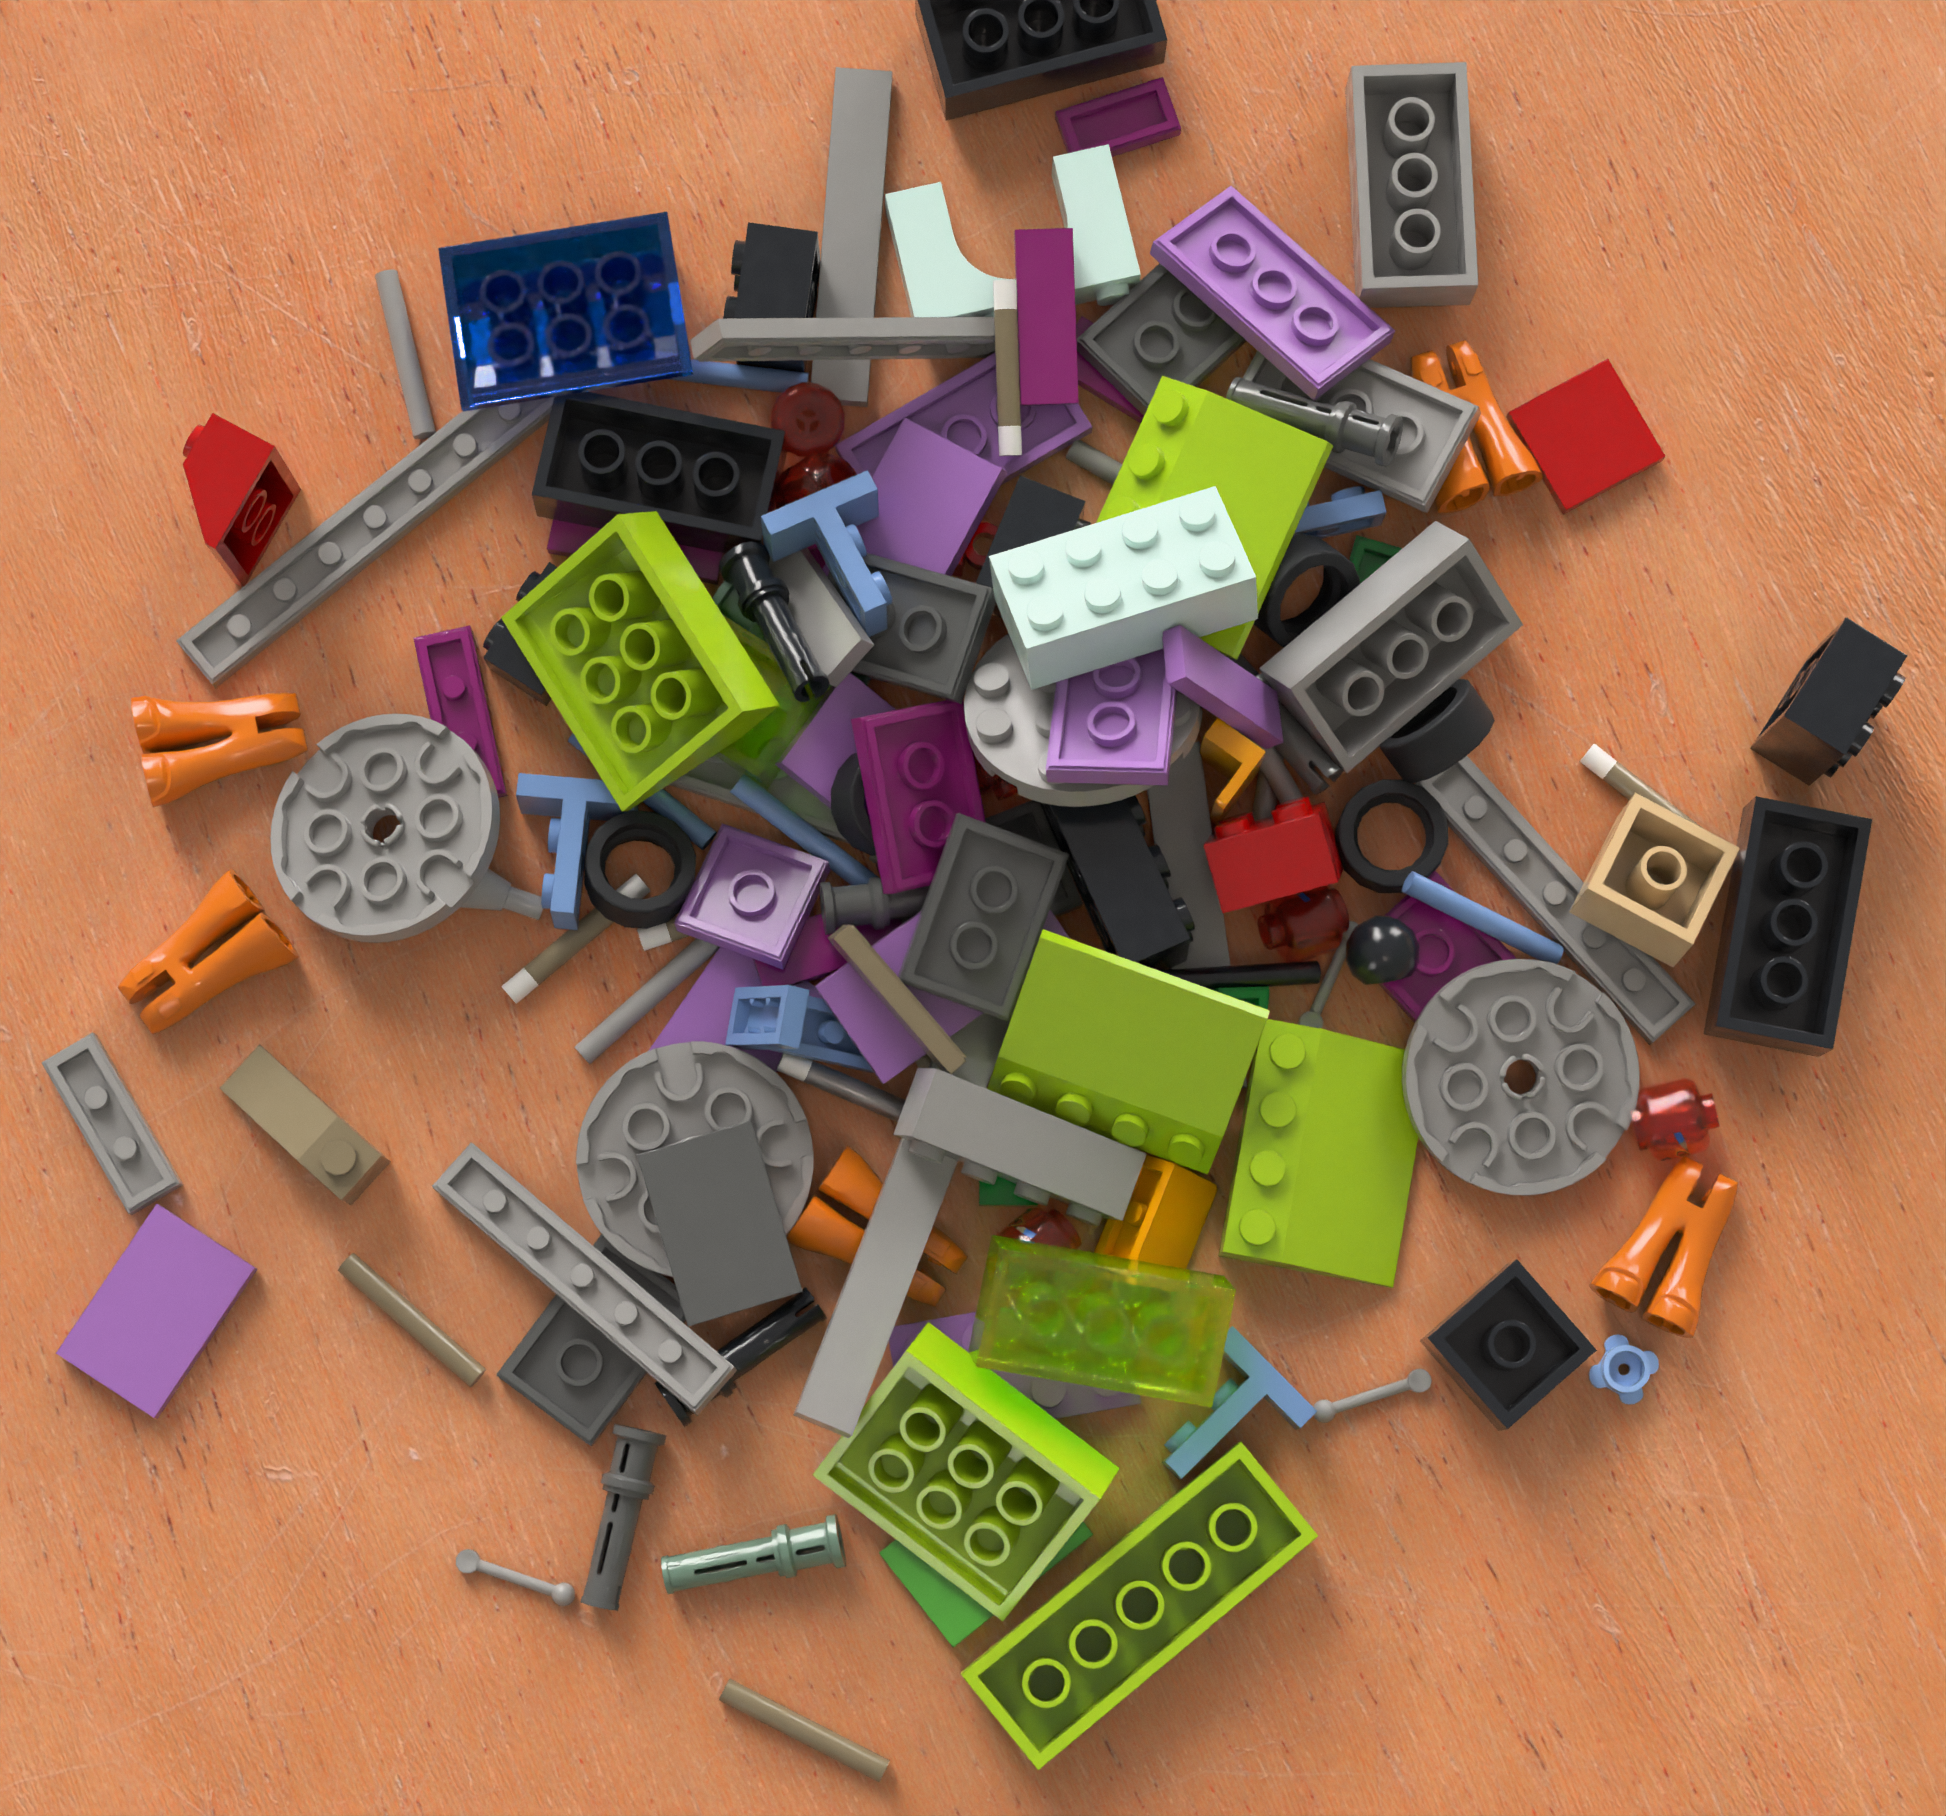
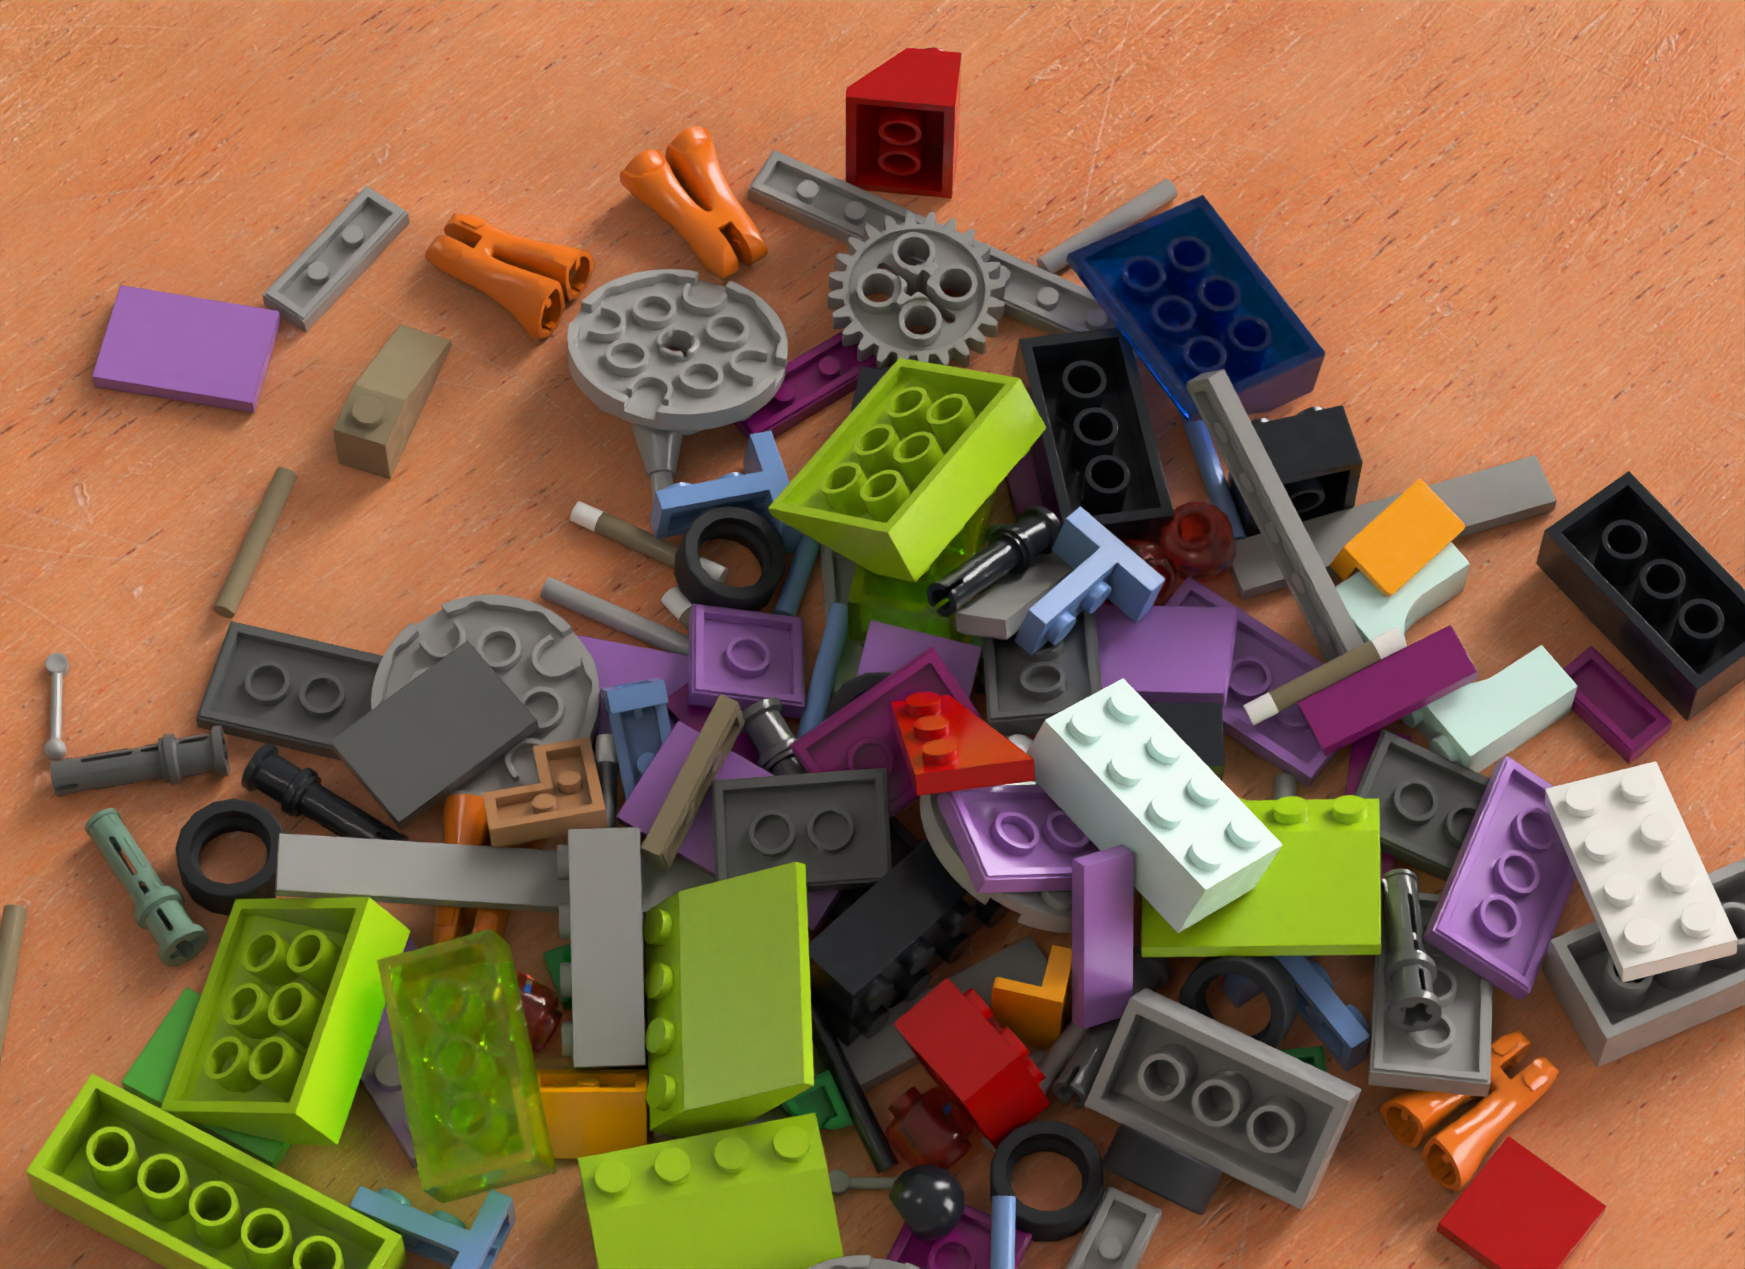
camera: 70 degrees right, 20 degrees down
(393, 524) = (916, 293): none -> light grey gear
(584, 1279) = (341, 654): light grey tile -> none
(714, 1453) = (208, 824): none -> black tyre
(861, 1135) = (562, 800): none -> medium nougat plate
(889, 235) = (1400, 540): none -> light orange panel
(994, 745) = (953, 747): none -> red wing
(1329, 178) = (1640, 872): none -> white plate

